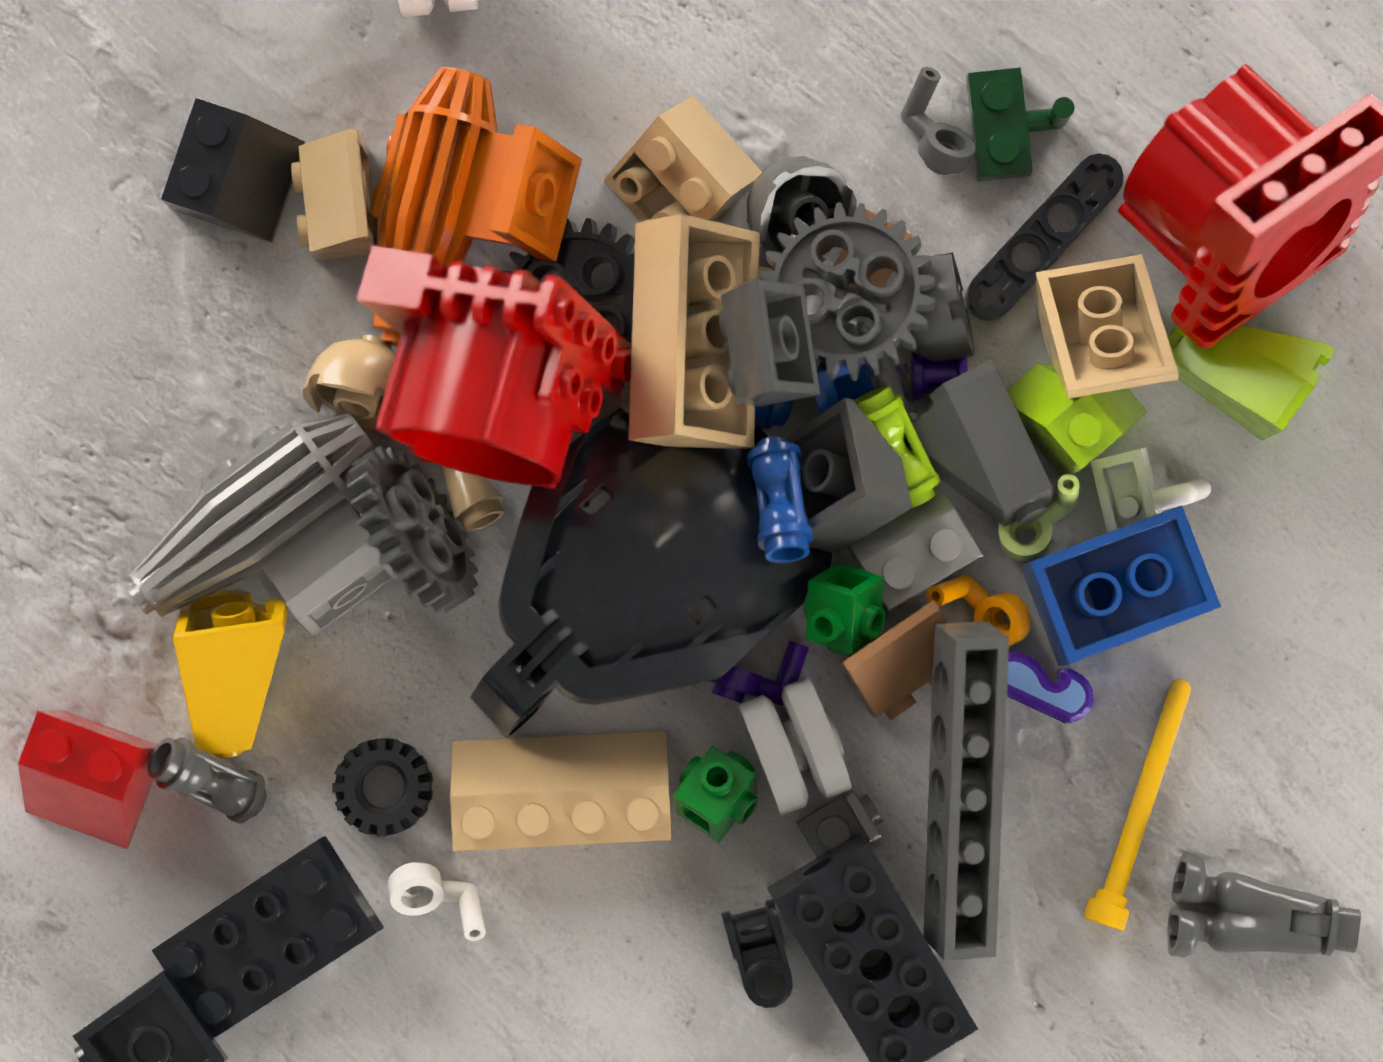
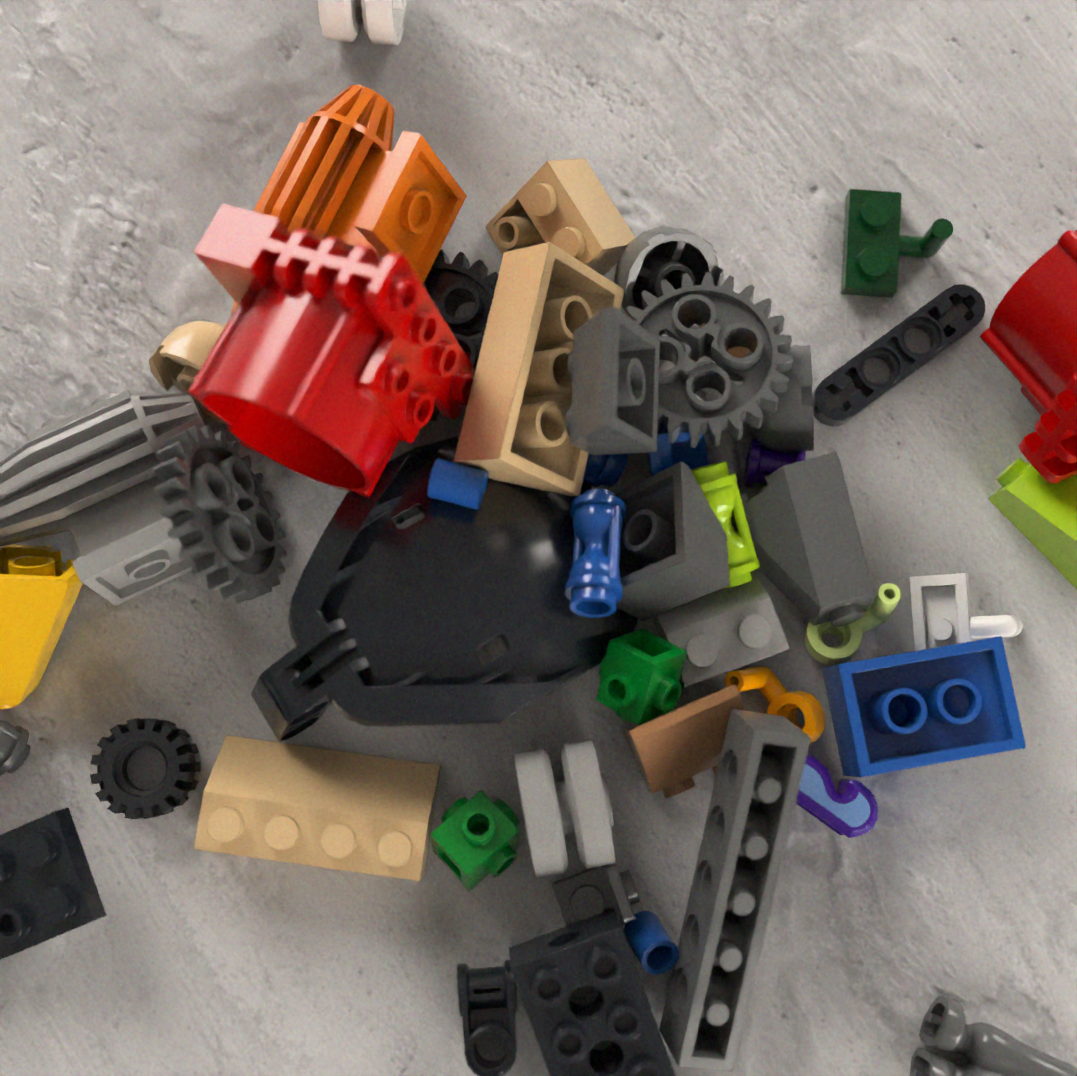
camera: 10 degrees right, 5 degrees down
(232, 171) = (133, 150): black slope -> none
(337, 196) = (227, 170): tan slope -> none
(419, 890) = (159, 879): white plate -> none
(472, 499) = (296, 500): tan cone -> none
(636, 460) = (457, 483): none -> blue hinge
(740, 682) = (518, 731): dark purple plate -> none
(900, 857) = (651, 943): none -> blue hinge
(942, 145) = (813, 251): dark grey plate -> none
(1075, 428) = (903, 528): lime slope -> none
(1103, 326) = (951, 443): tan slope -> none
(1109, 904) = (856, 1032): yellow piece -> none

